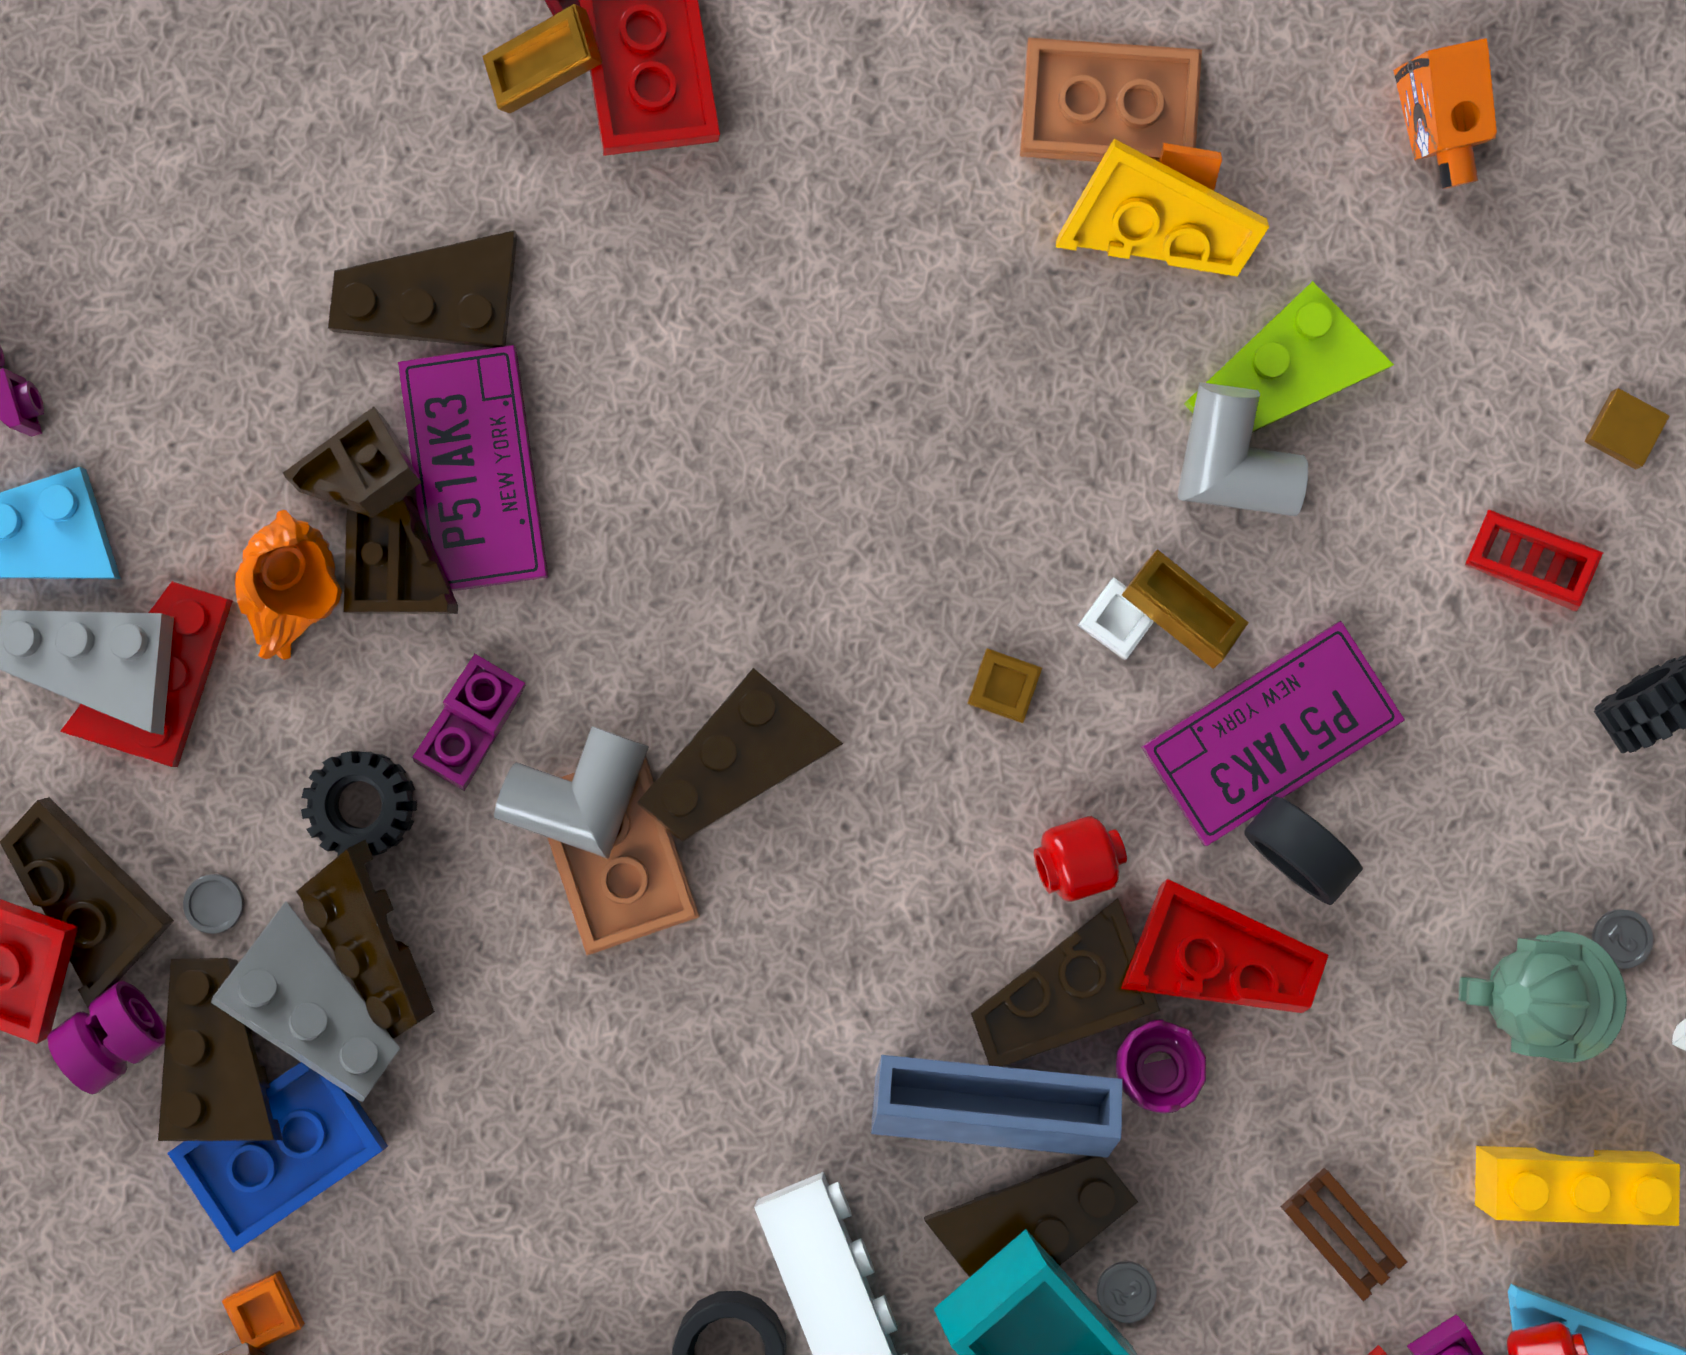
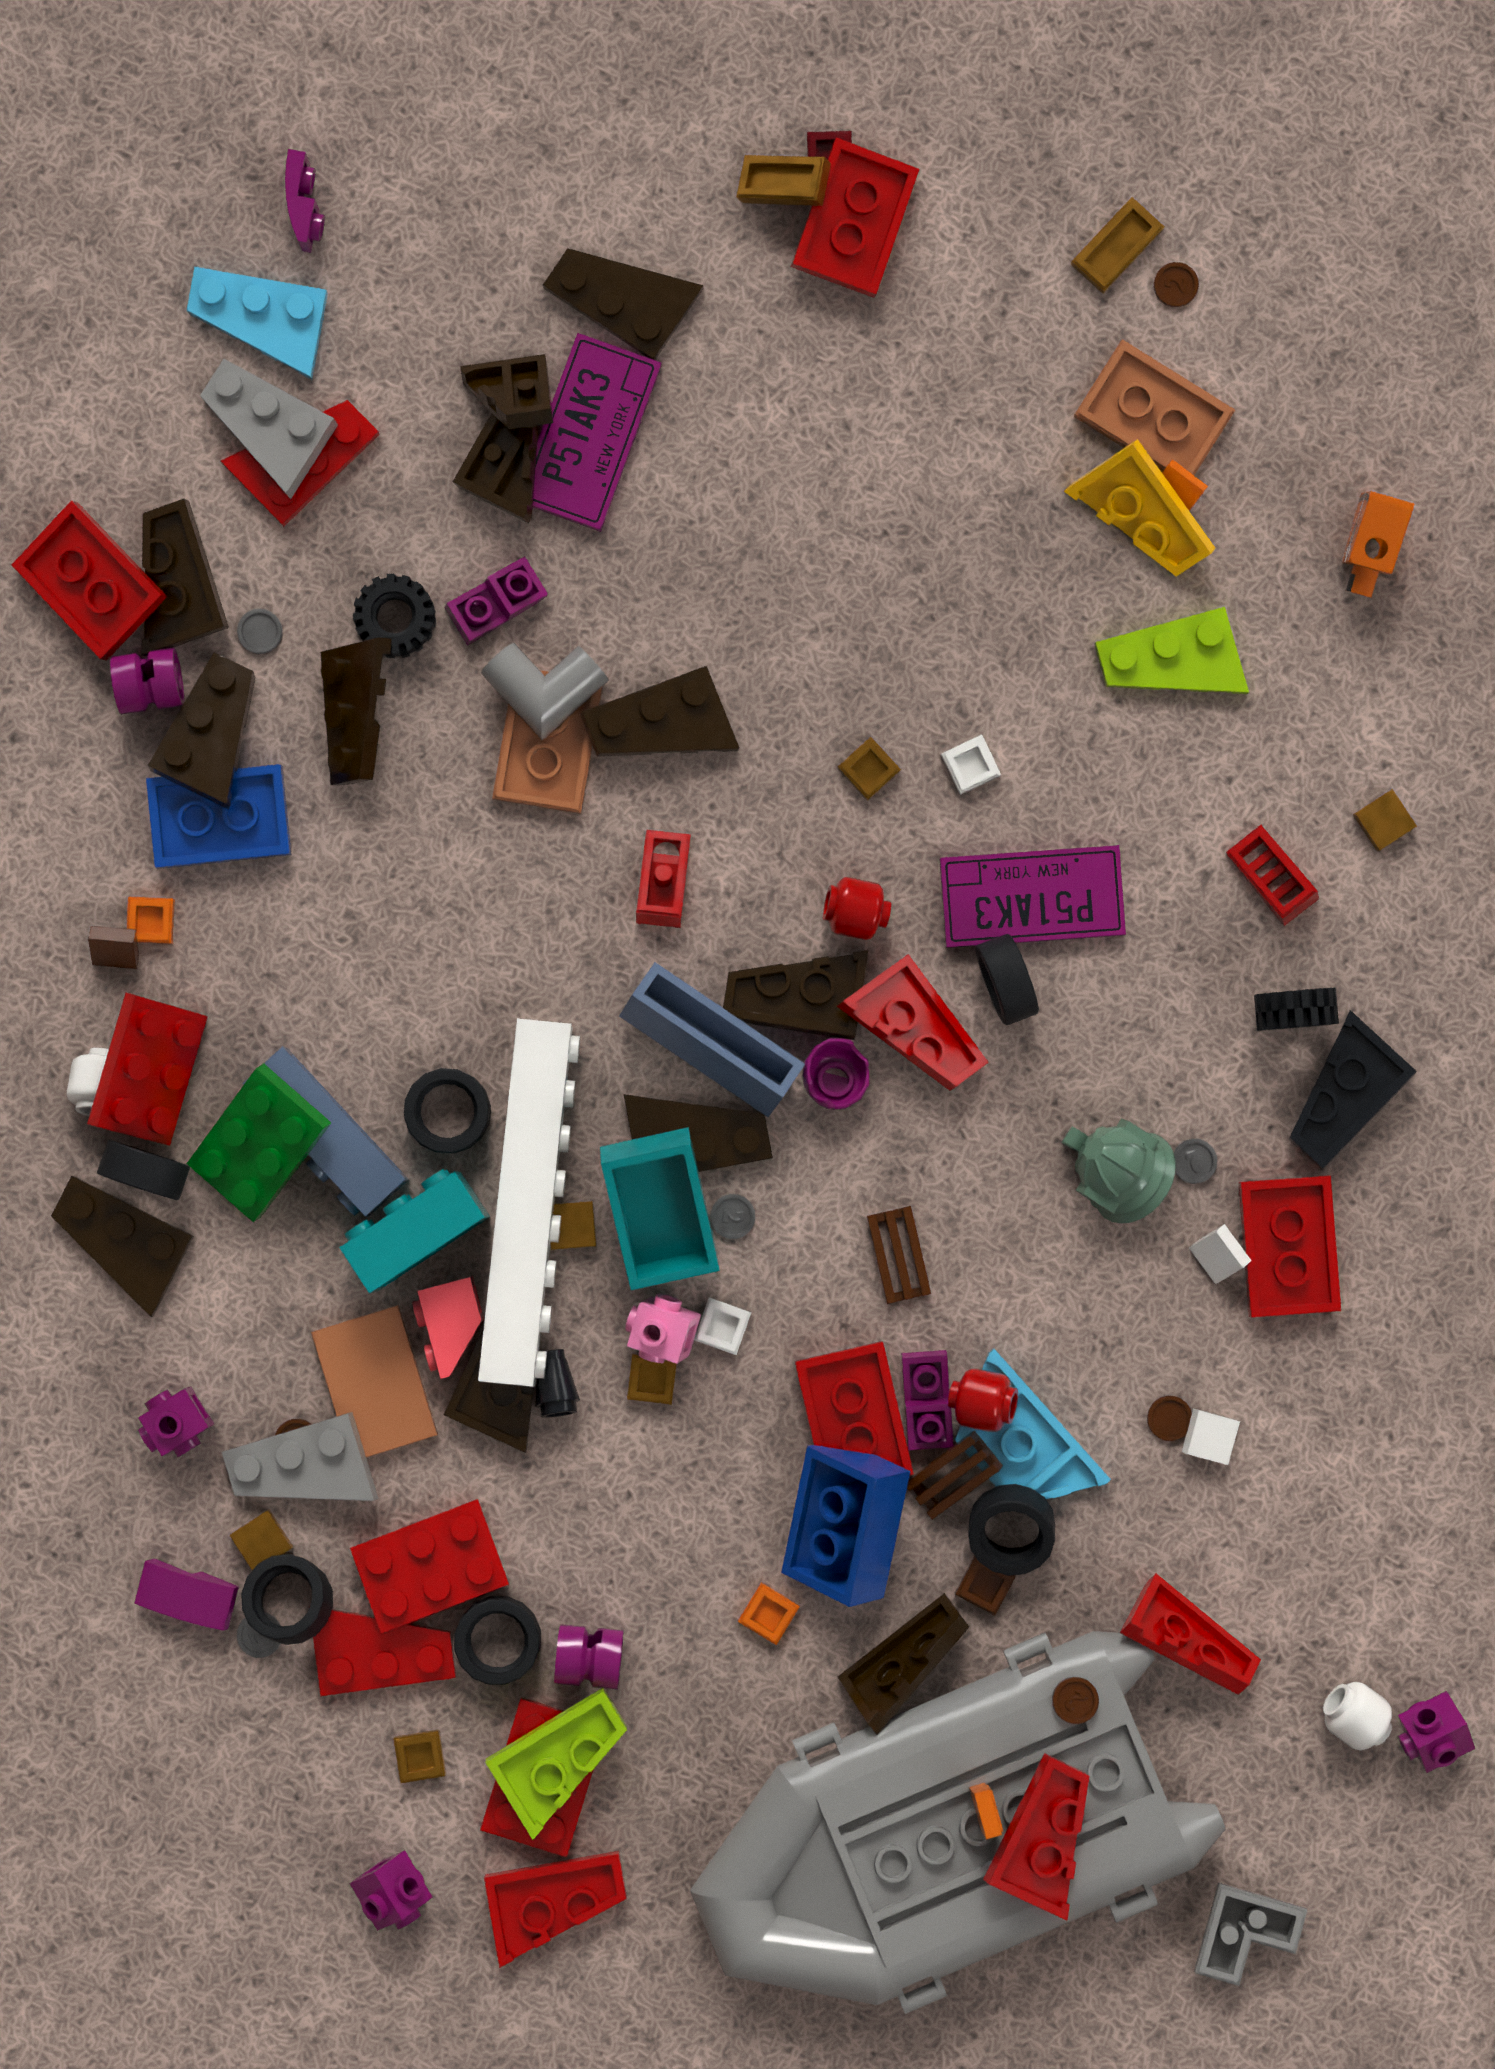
camera: 25 degrees right, 0 degrees up
(285, 583) = (425, 442): orange hair -> none
(306, 1006) = (289, 731): light grey wing -> none
(835, 943) = (662, 880): none -> red slope
(1185, 609) = (1018, 780): pearl gold tile -> none
(1222, 466) = (1095, 697): light grey brick -> none
(1572, 1189) = (1070, 1300): yellow arch -> none

